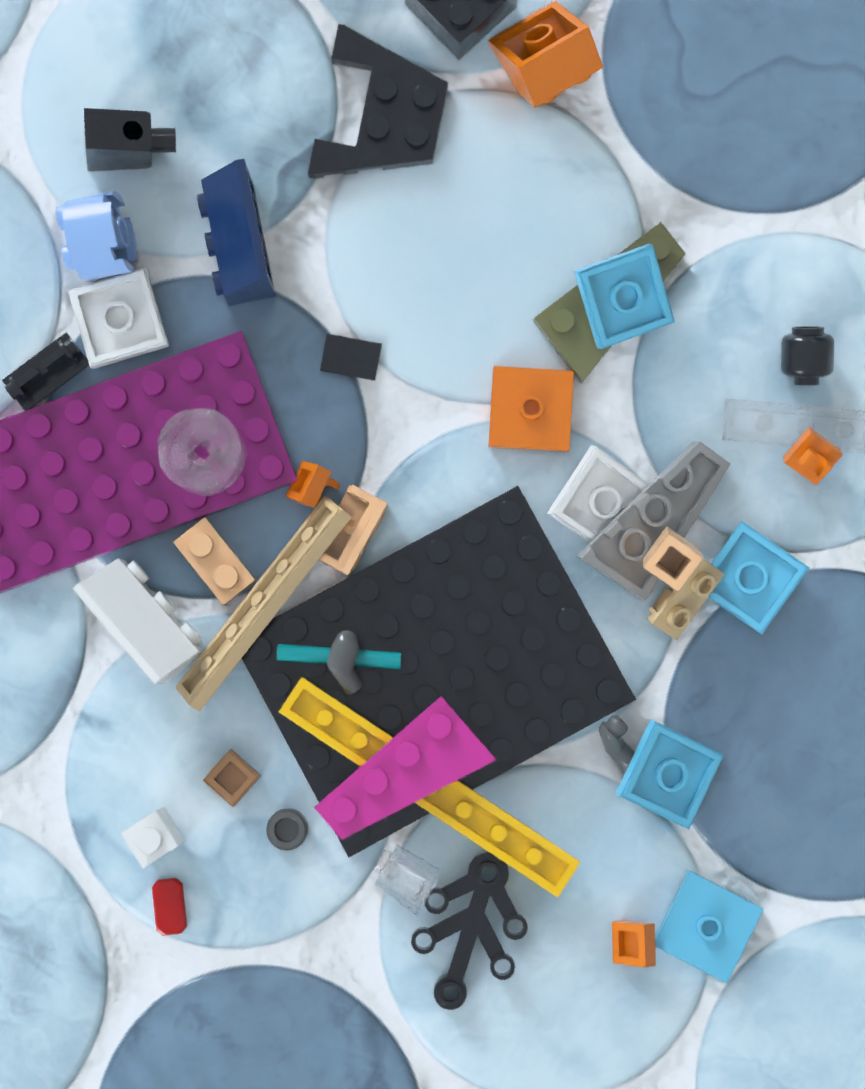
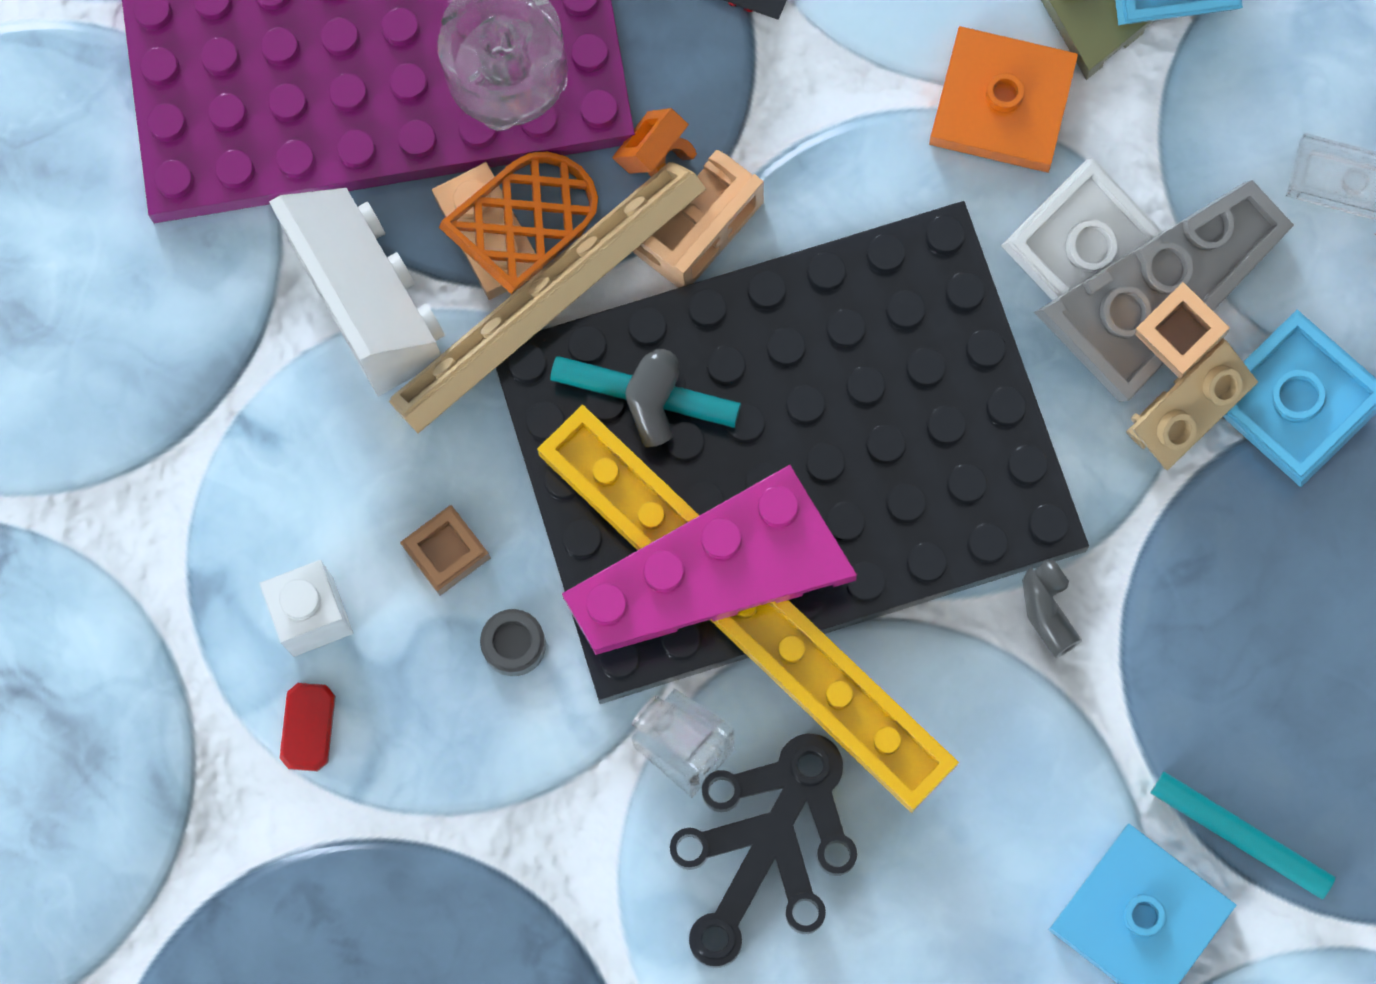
camera: 15 degrees right, 10 degrees down
(205, 549) = (483, 257): none -> orange window
(633, 943) = (1020, 916): orange plate -> none
(669, 774) = (1122, 668): medium azure plate -> none
(760, 862) = (1243, 835): none -> teal bar

